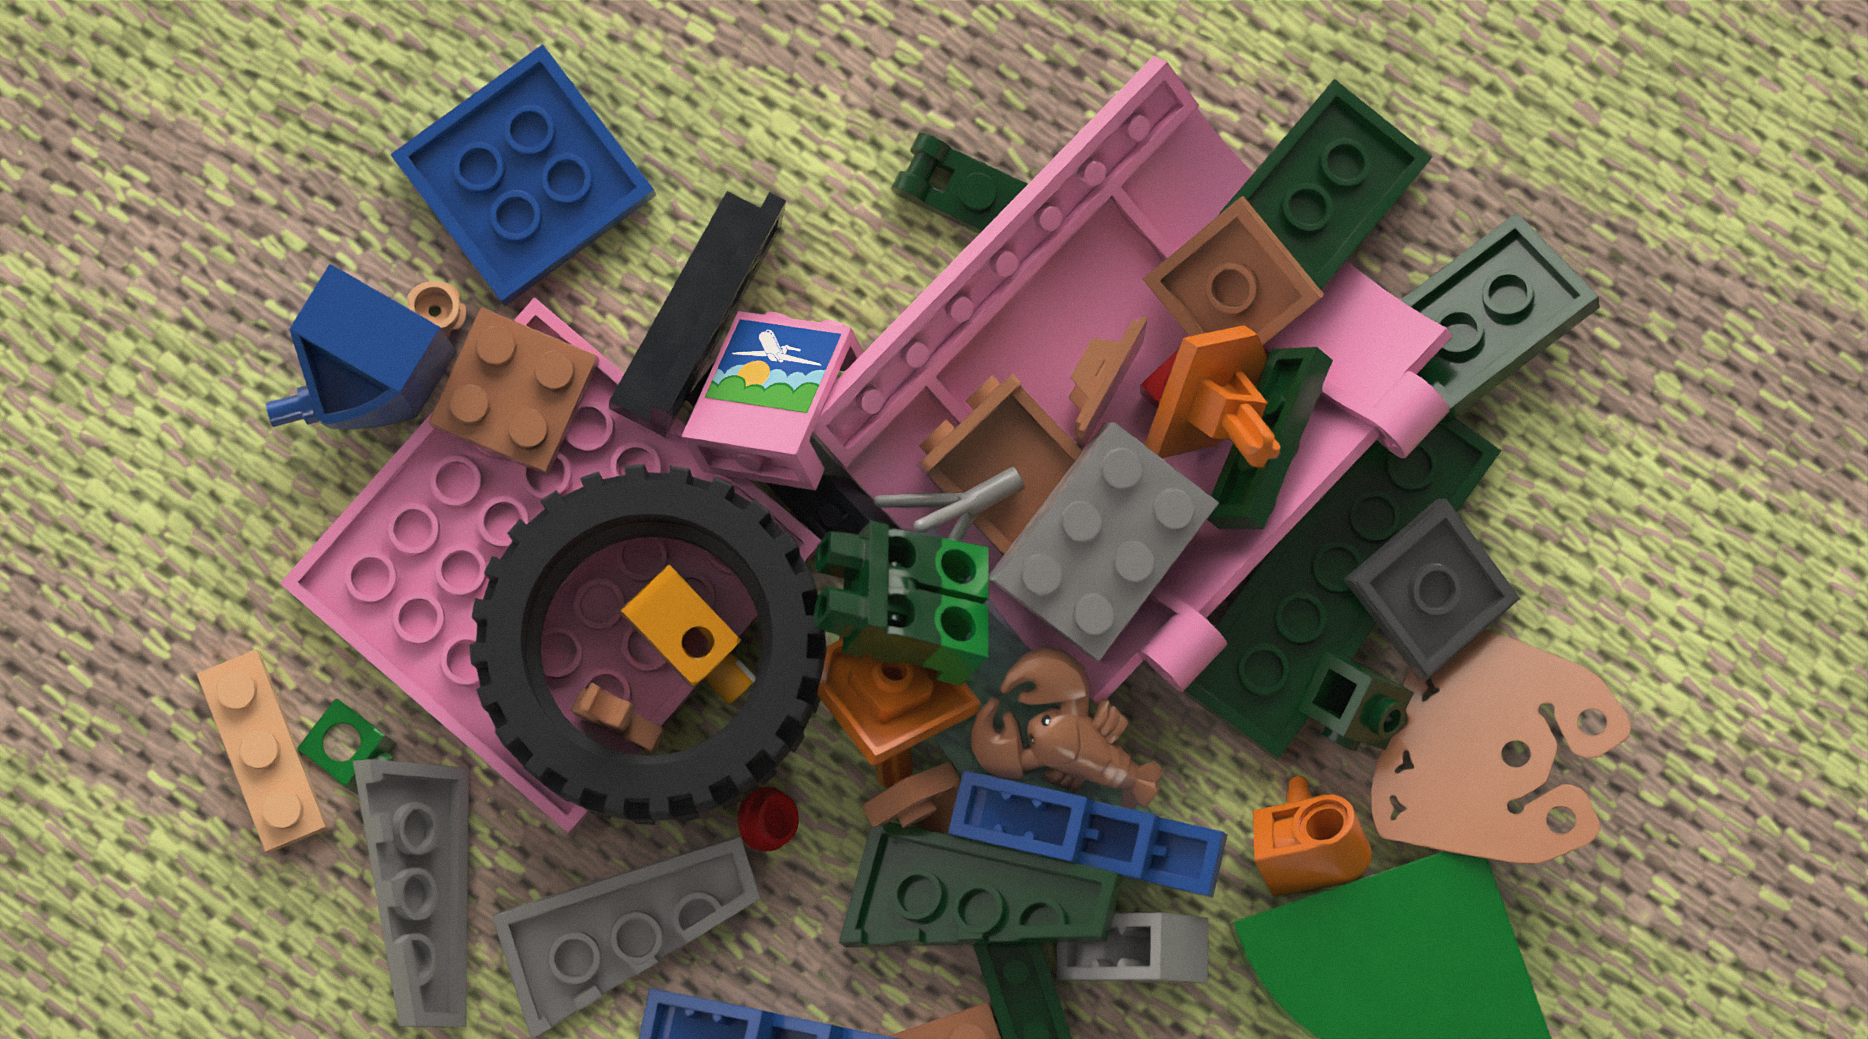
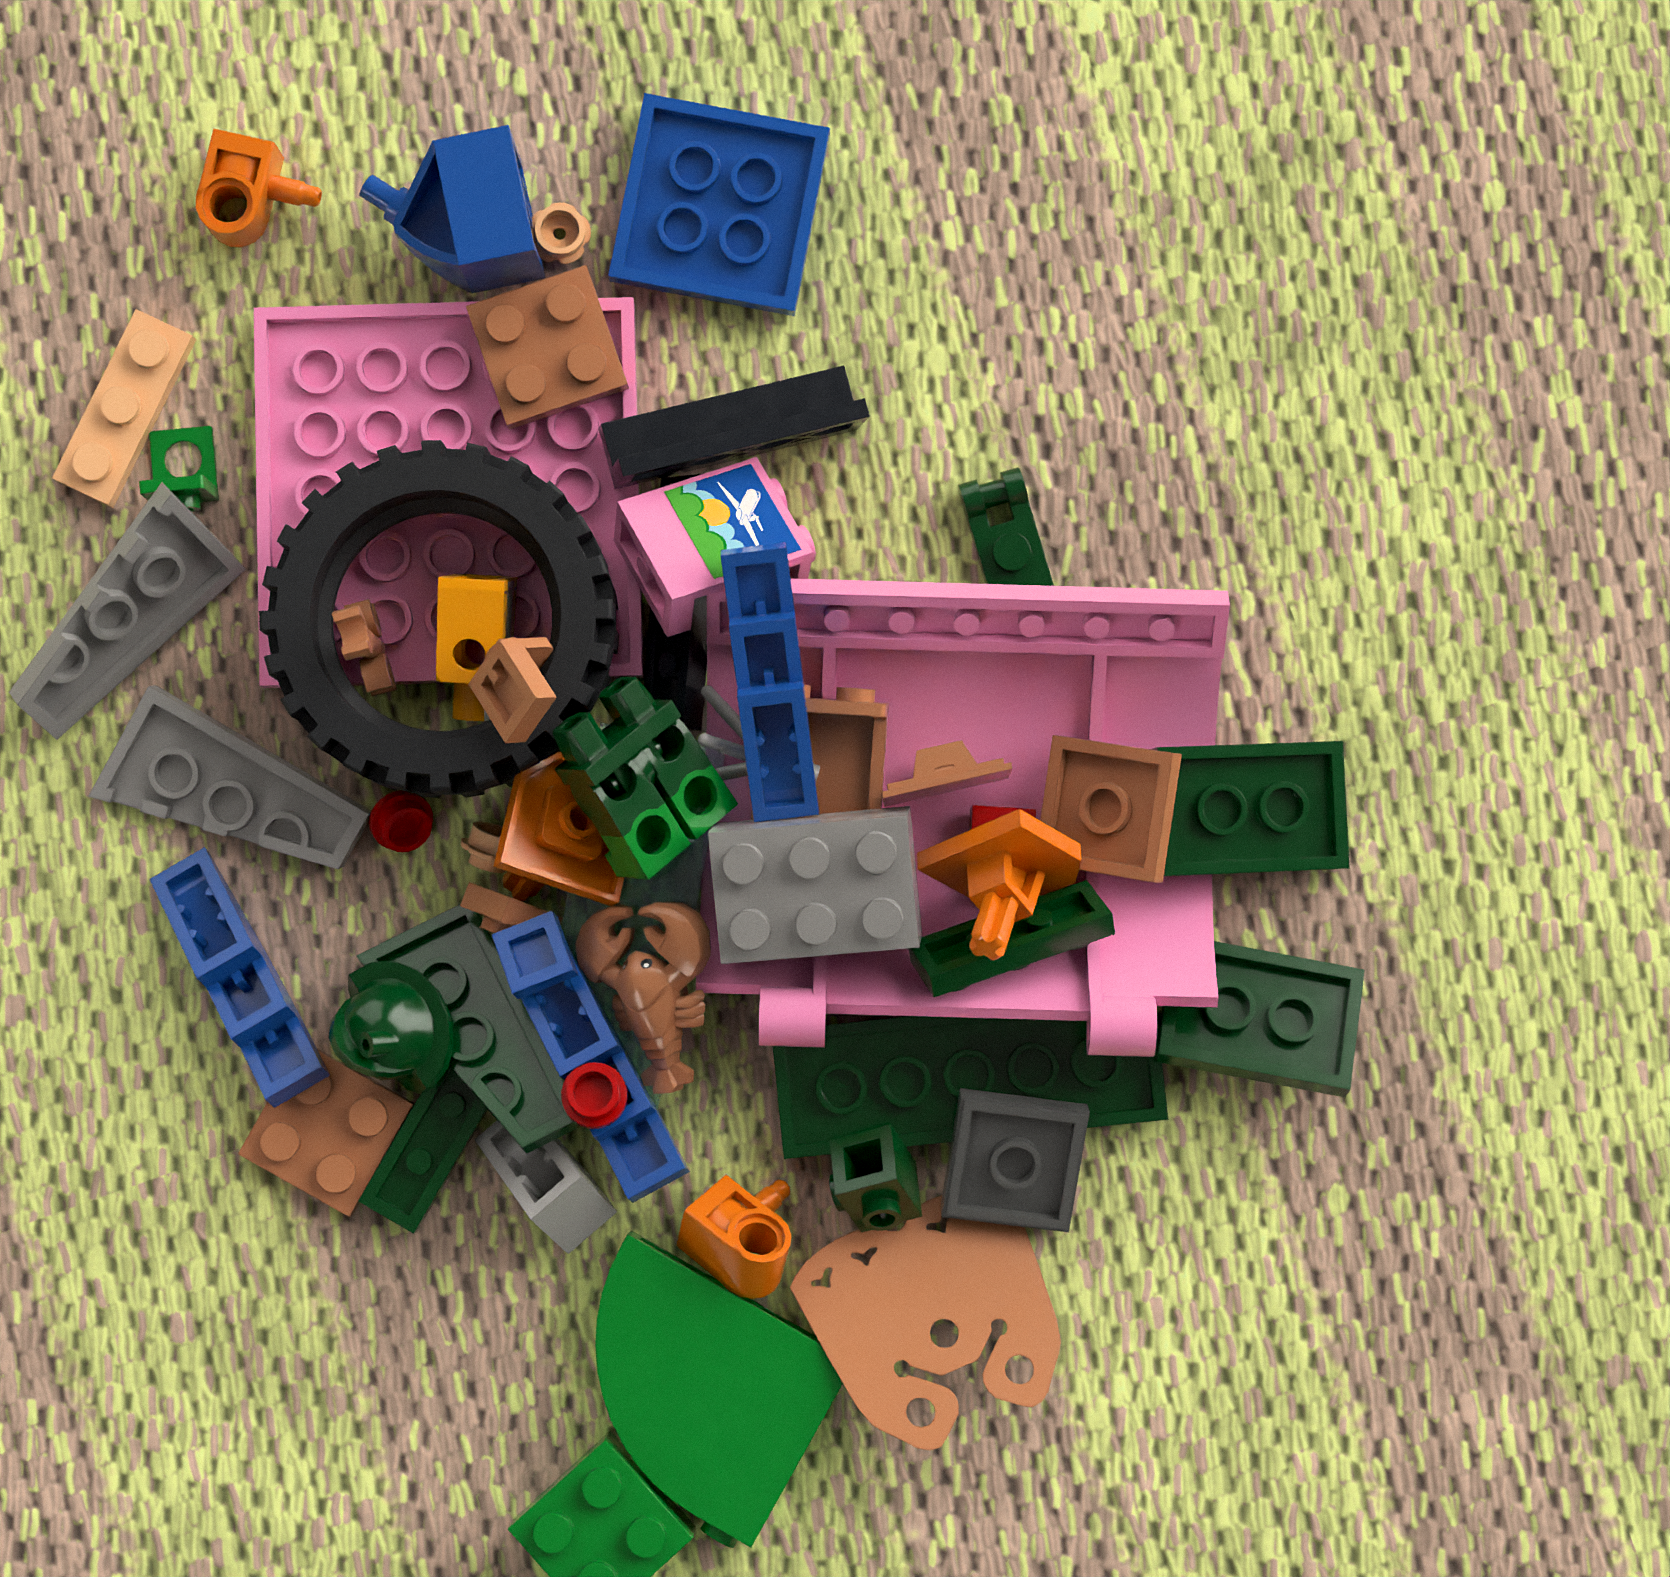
camera: 45 degrees right, 5 degrees up
(172, 496) = (251, 171): none -> orange piece
(756, 624) = (513, 686): none -> nougat bracket
(846, 770) = (483, 845): none -> light nougat plate
(921, 440) = (769, 682): none -> blue slope
(921, 955) = (394, 1026): none -> dark green helmet
(964, 799) = (534, 955): none -> blue plate
(1109, 848) = (594, 1095): none -> red plate

